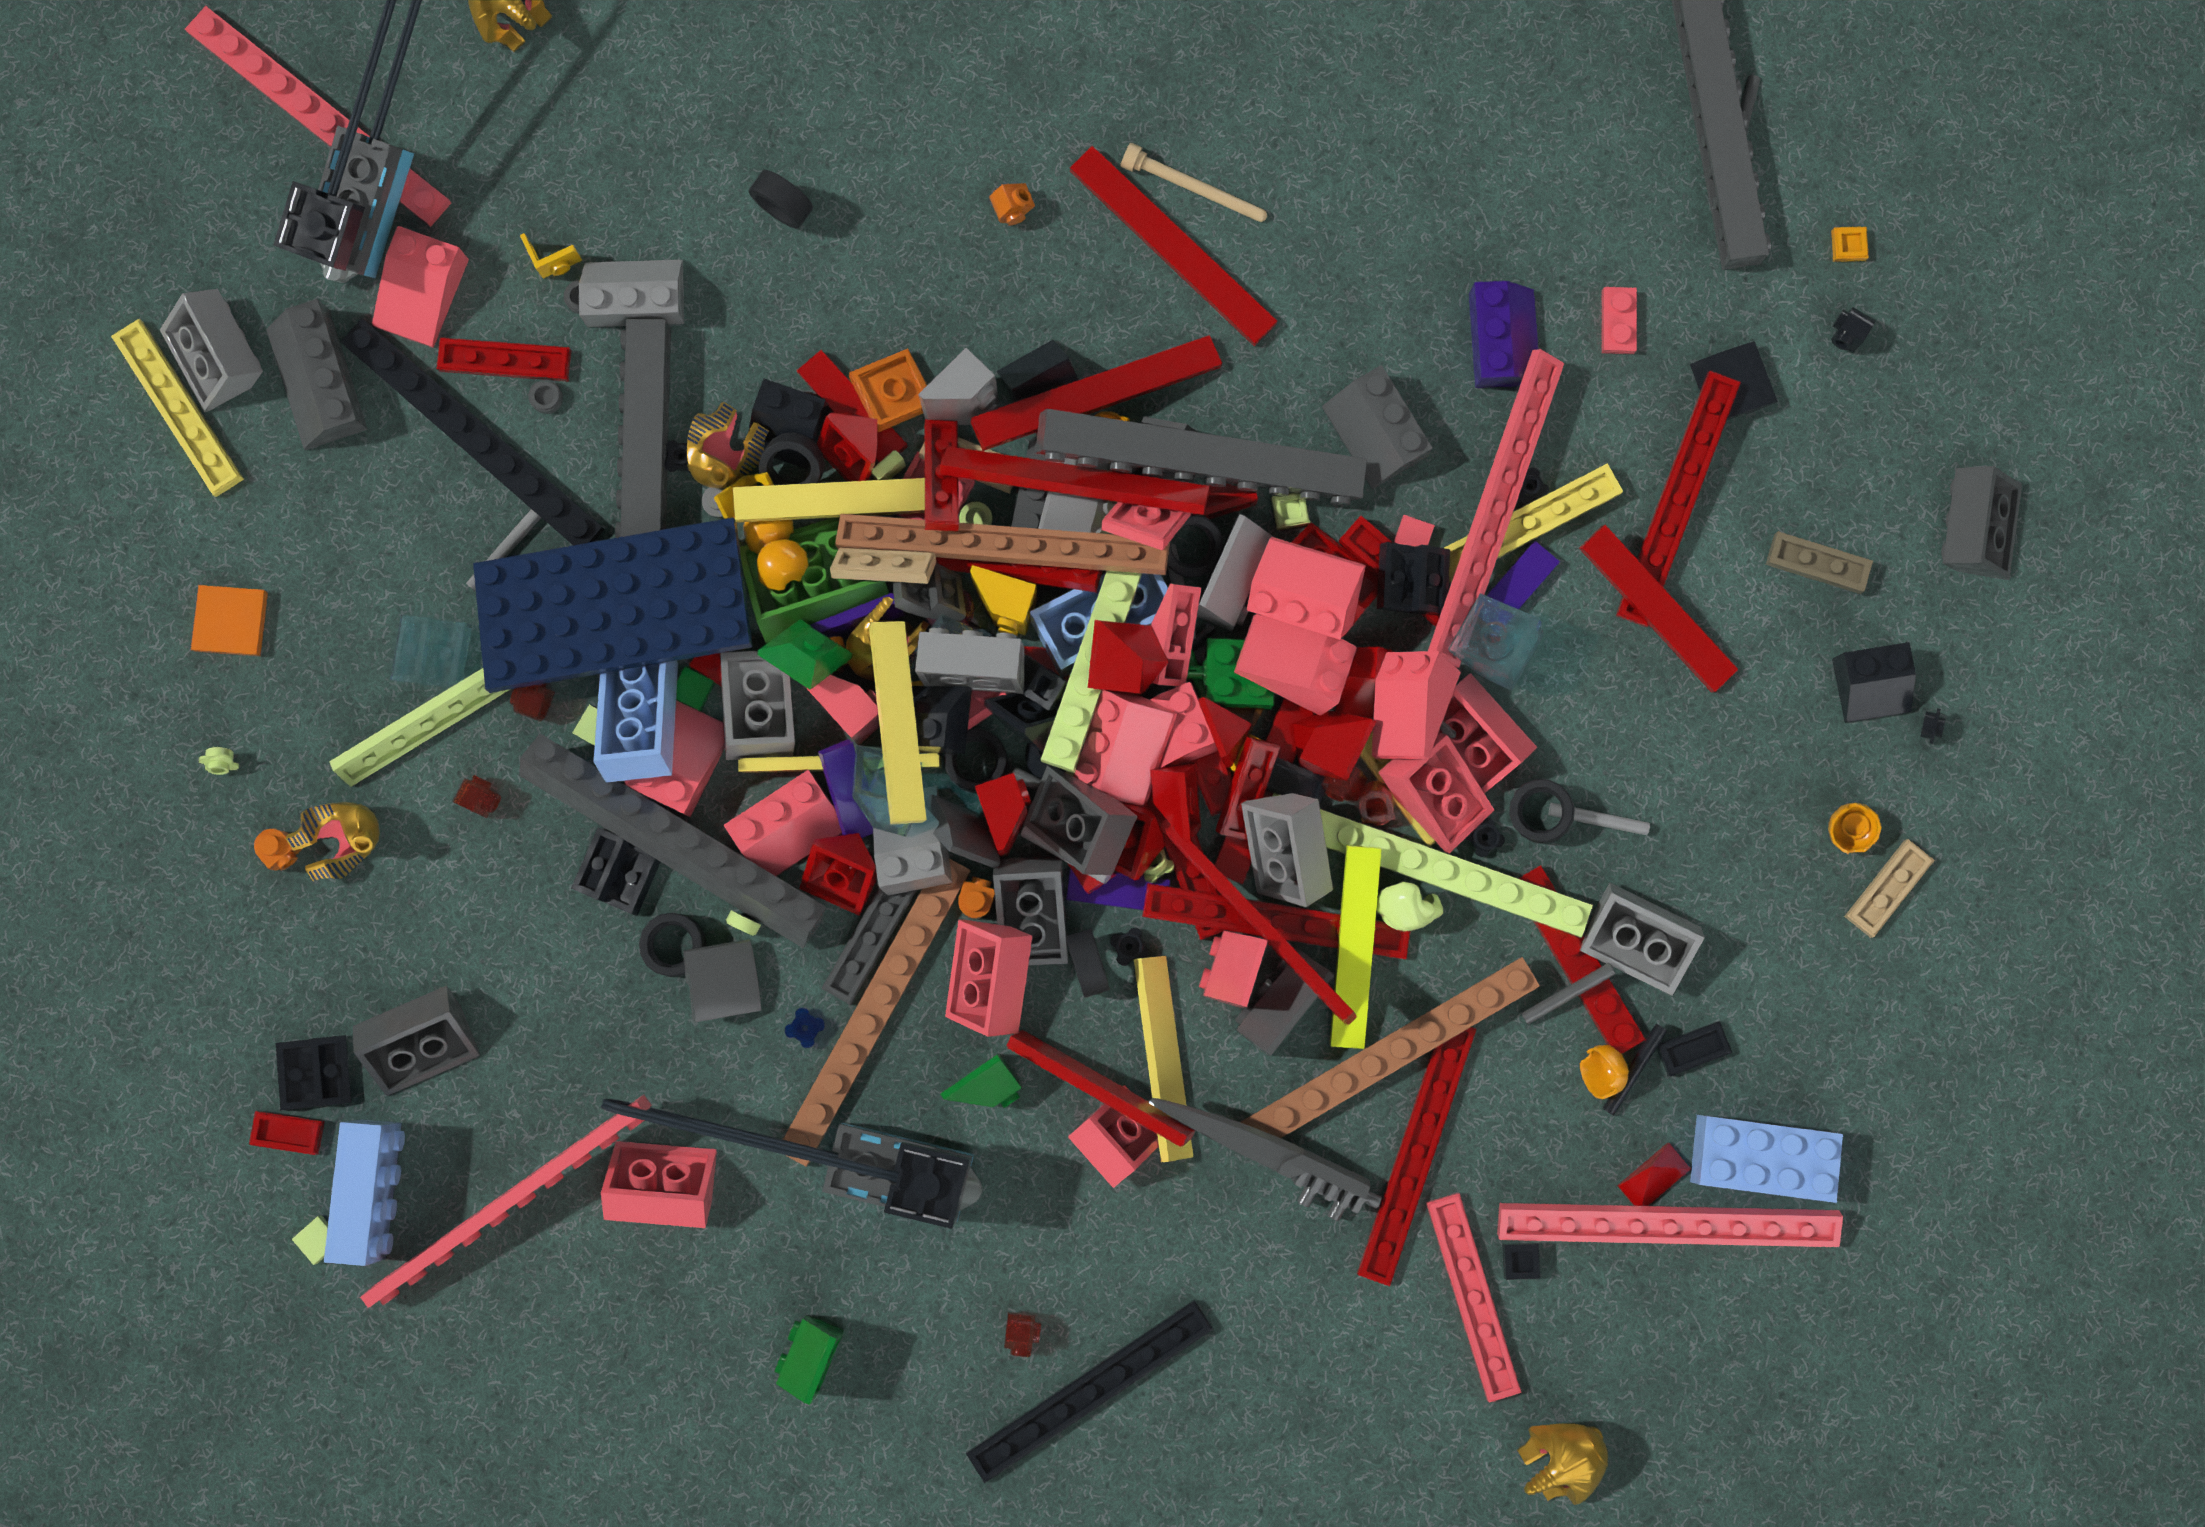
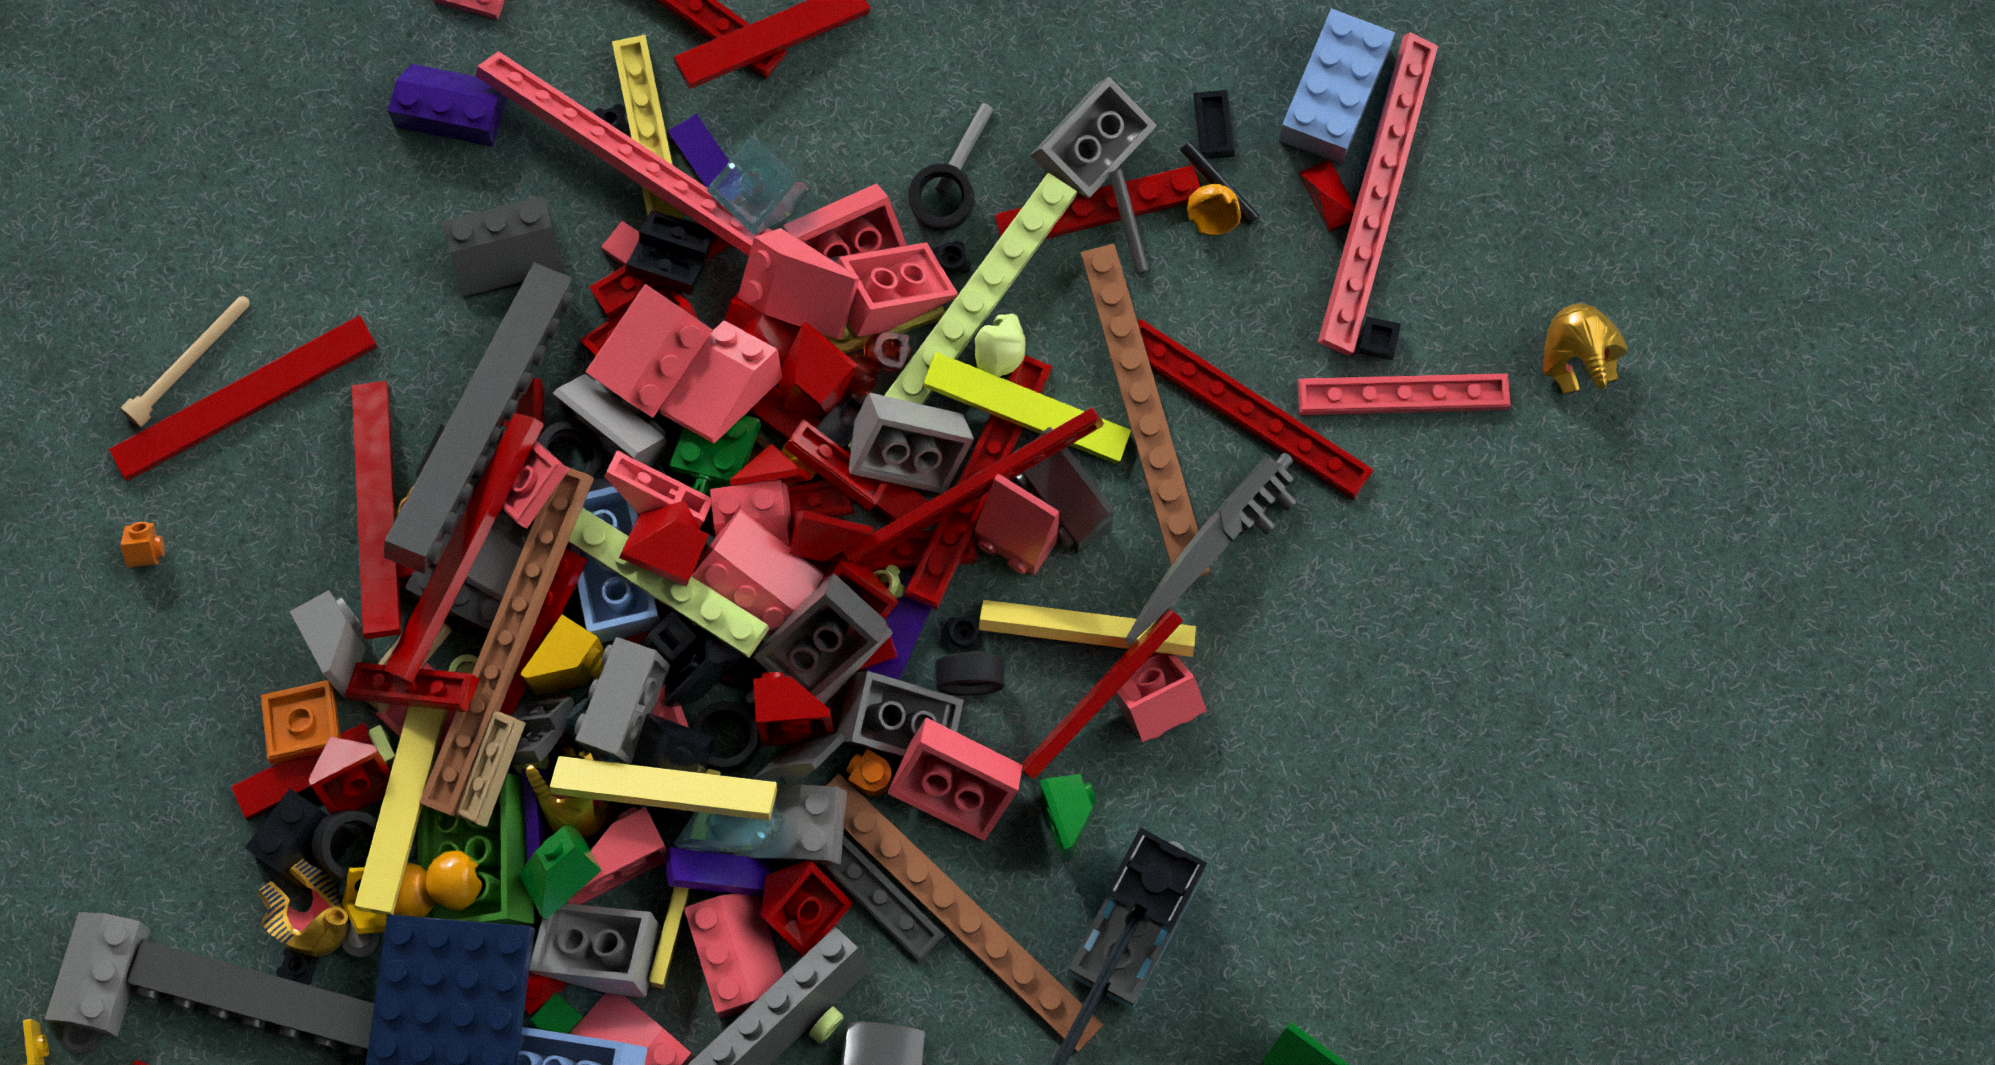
camera: 75 degrees left, 10 degrees down
(781, 199) = (52, 782): black tyre -> none
(802, 1018) = (945, 989): clear blue plate -> none
(1021, 1333) = (1331, 844): clear red plate -> none
(1037, 372) = (334, 563): black slope -> none
(1089, 1391) = (1407, 794): black tile -> none
(1290, 511) = (562, 356): yellowish green tile -> none

